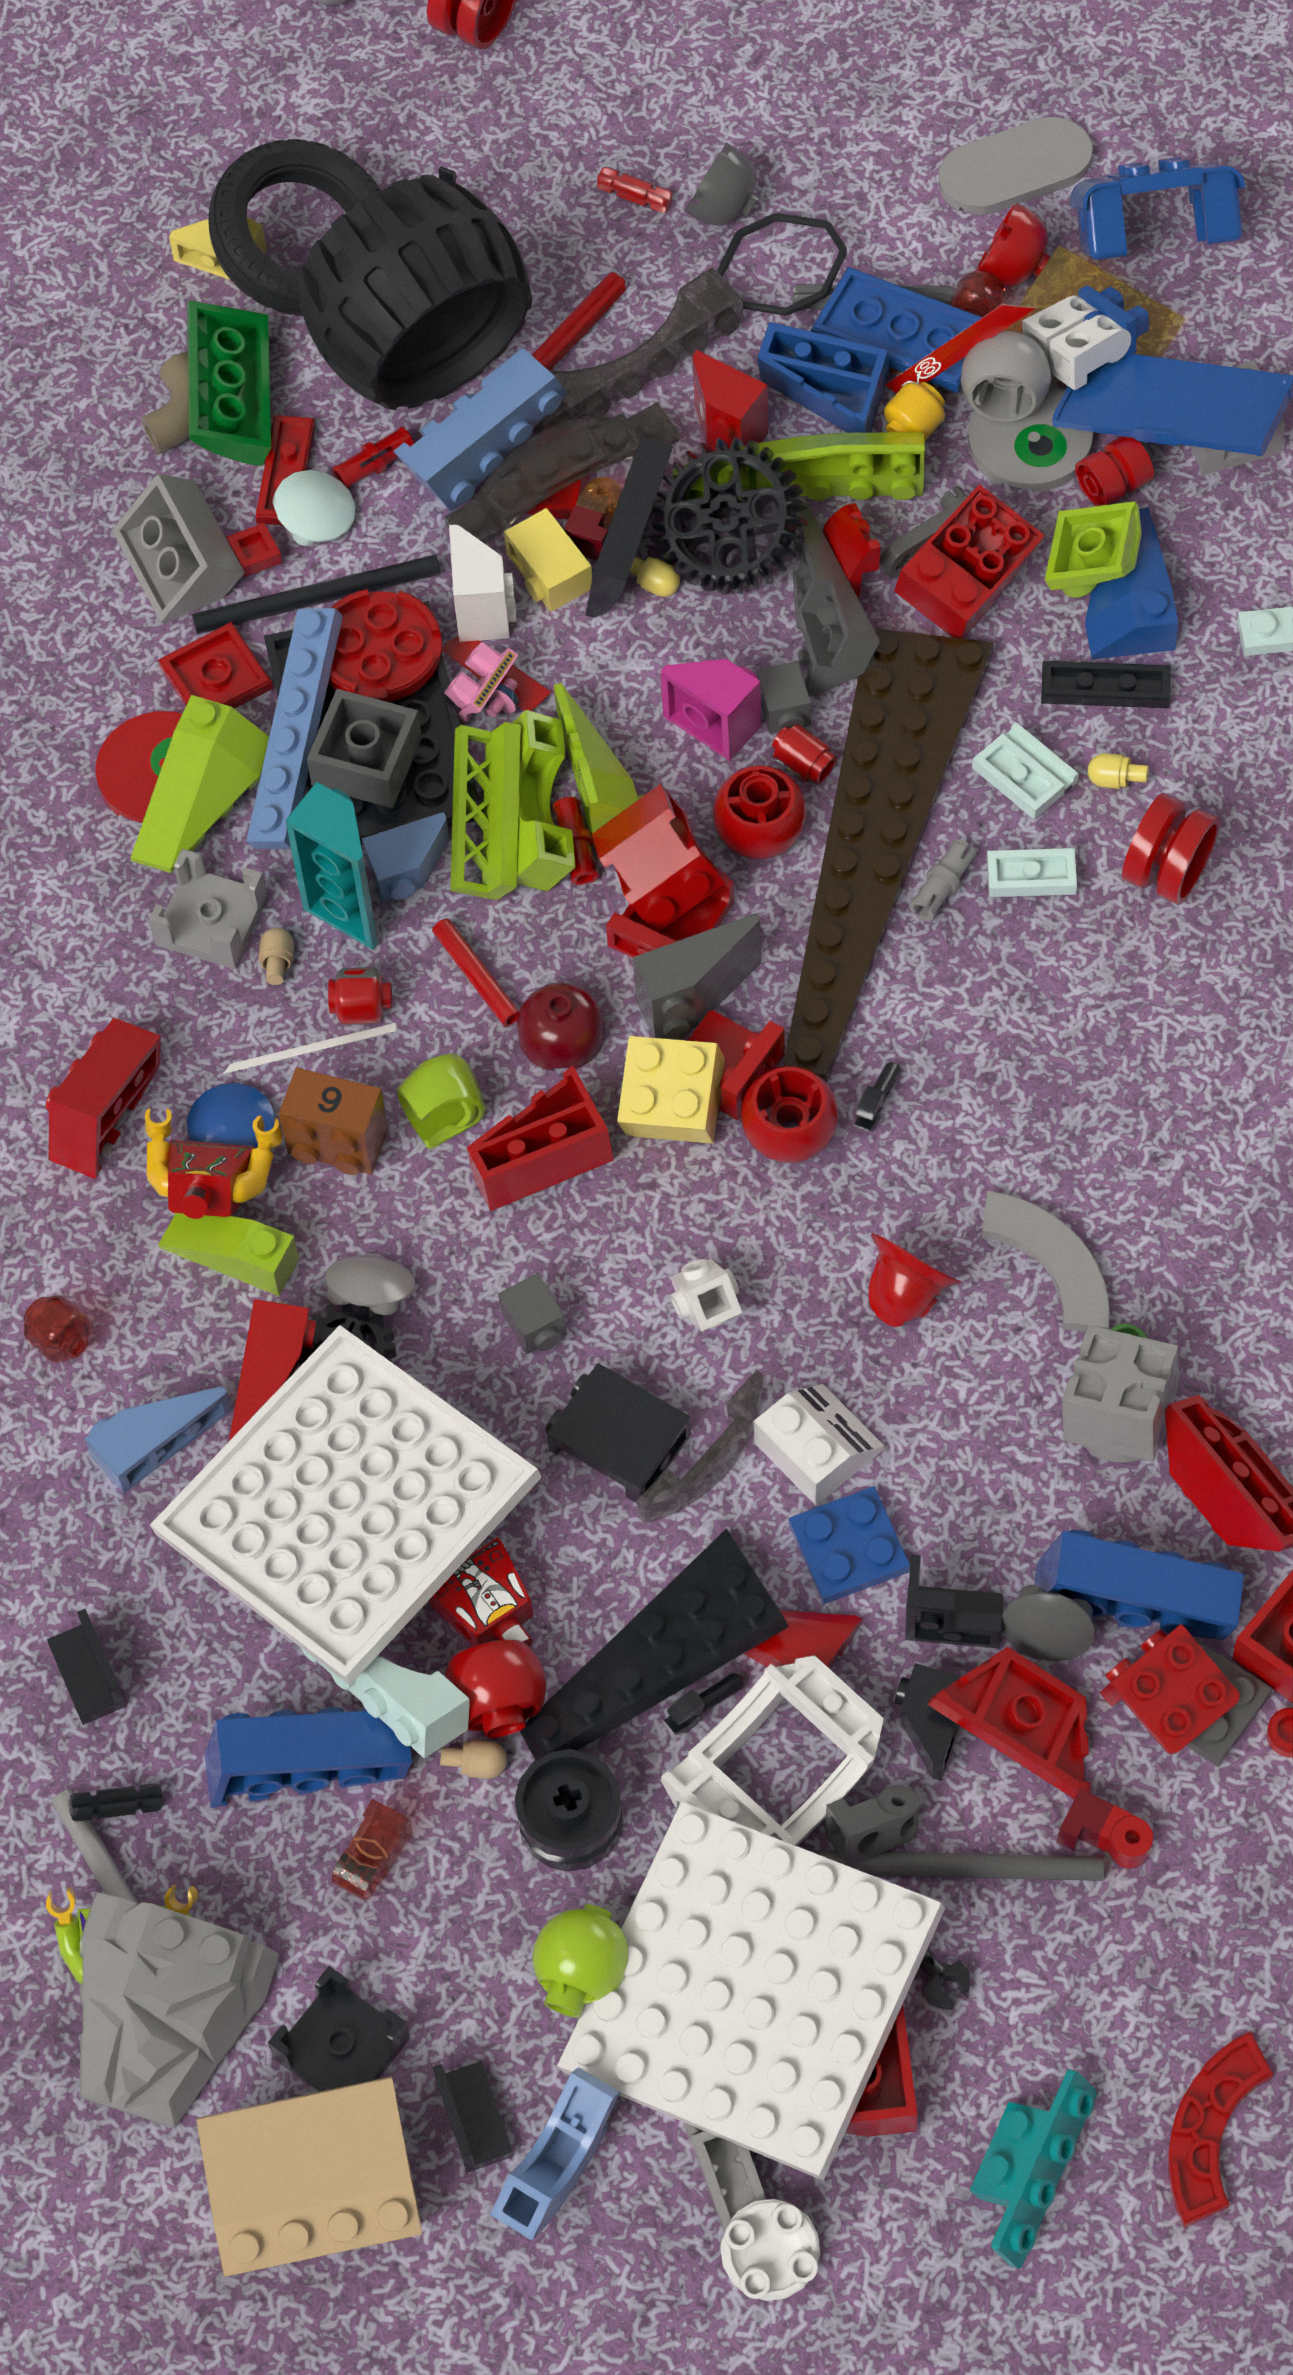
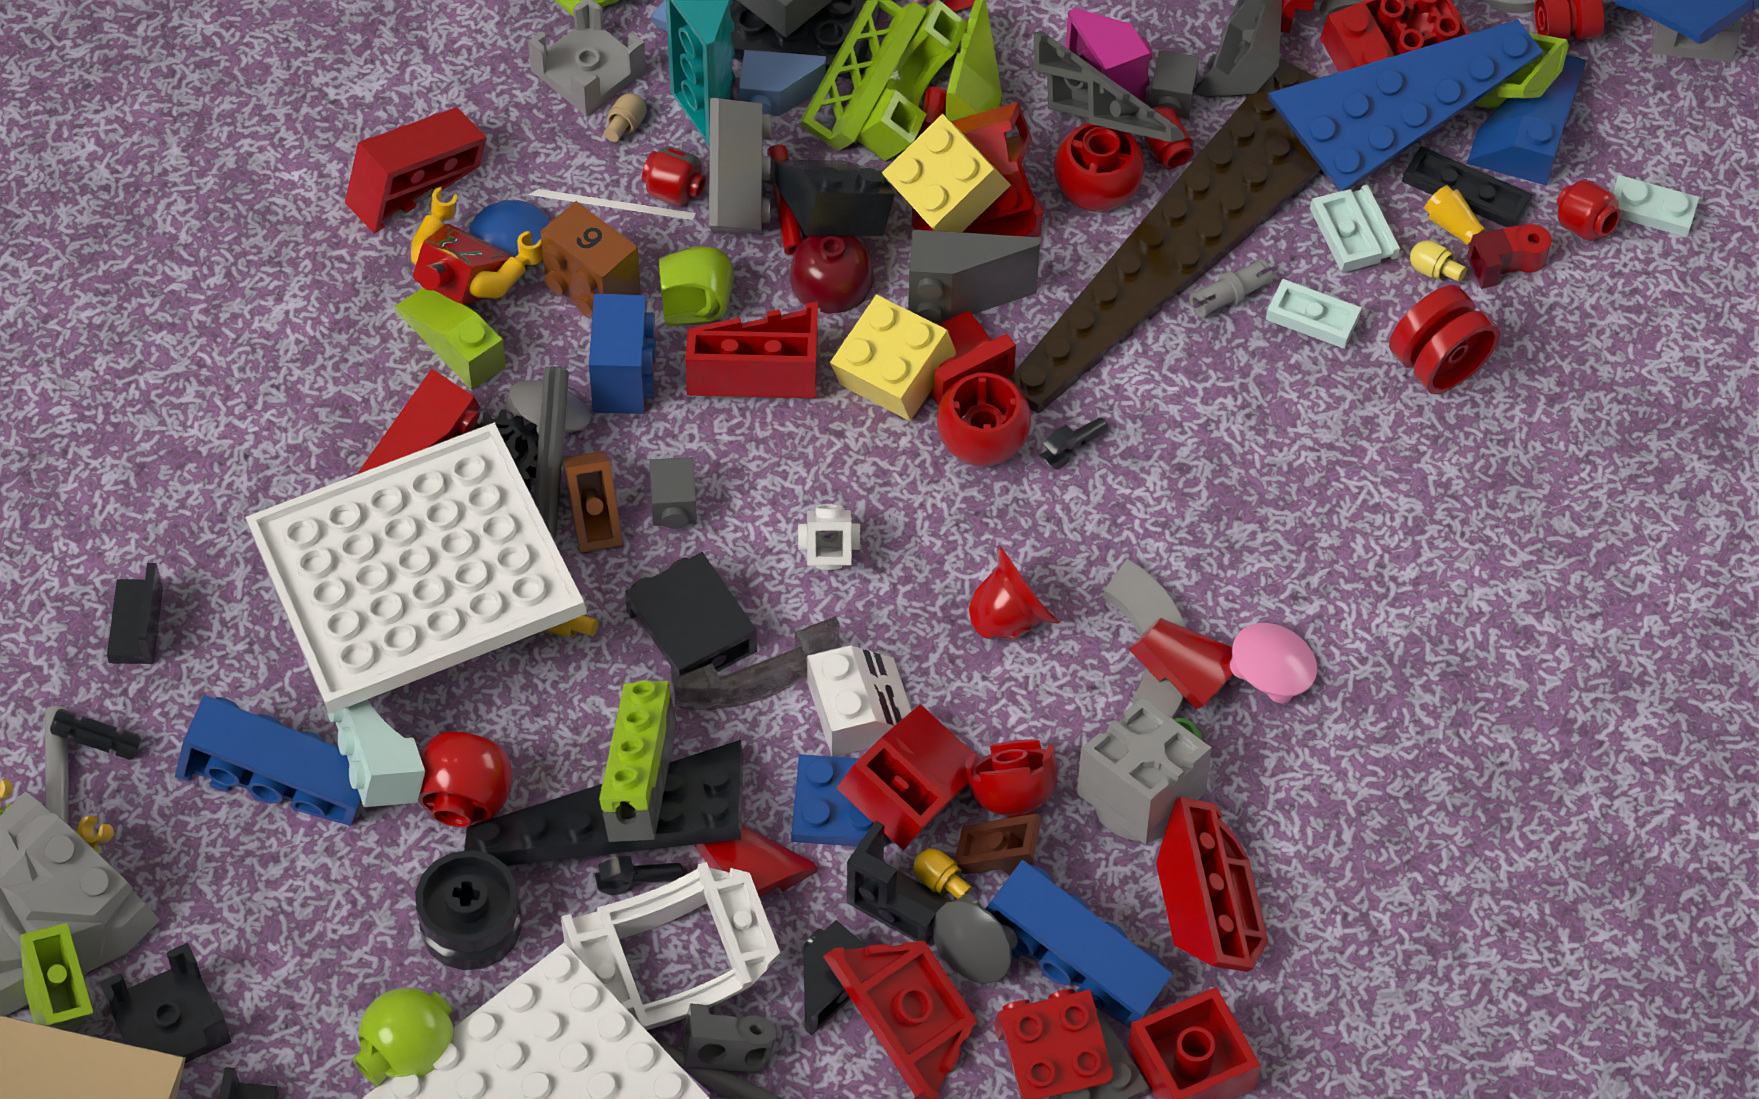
camera: 20 degrees right, 5 degrees down
(56, 1328) = (269, 331): clear red head -> none
(150, 1434) = (296, 452): medium blue slope -> none
(222, 2060) = (54, 978): none -> lime slope
(372, 1850) = (285, 870): clear red leg -> none
(395, 1314) = (551, 445): none -> dark grey axle
(413, 1199) = (621, 354): none -> blue brick
(425, 964) = (738, 166): none -> light grey slope
(460, 1355) = (592, 501): none -> dark orange slope
(477, 1758) = (417, 835): tan cylinder -> none
(485, 1598) = (499, 702): torso -> none
(529, 950) = (834, 196): none -> black slope
(636, 891) = (946, 177): none -> light yellow brick
(655, 1595) = (638, 761): none -> lime piece
(712, 744) = (1086, 92): none -> dark grey wedge
(909, 1494) = (908, 776): none -> red slope
(979, 1573) = (940, 873): none -> yellow cylinder
(995, 643) = (1382, 108): none -> blue wing
(1000, 1450) = (1014, 777): none -> red cylinder
(1022, 1522) = (998, 844): none -> copper slope
(1097, 1265) = (1186, 658): none -> red slope
(1110, 718) = (1453, 214): none -> yellow cone
(1173, 1231) = (1273, 661): none -> bright pink dish
(1176, 732) = (1508, 251): none -> leg
(1230, 660) = (1588, 210): none -> red head

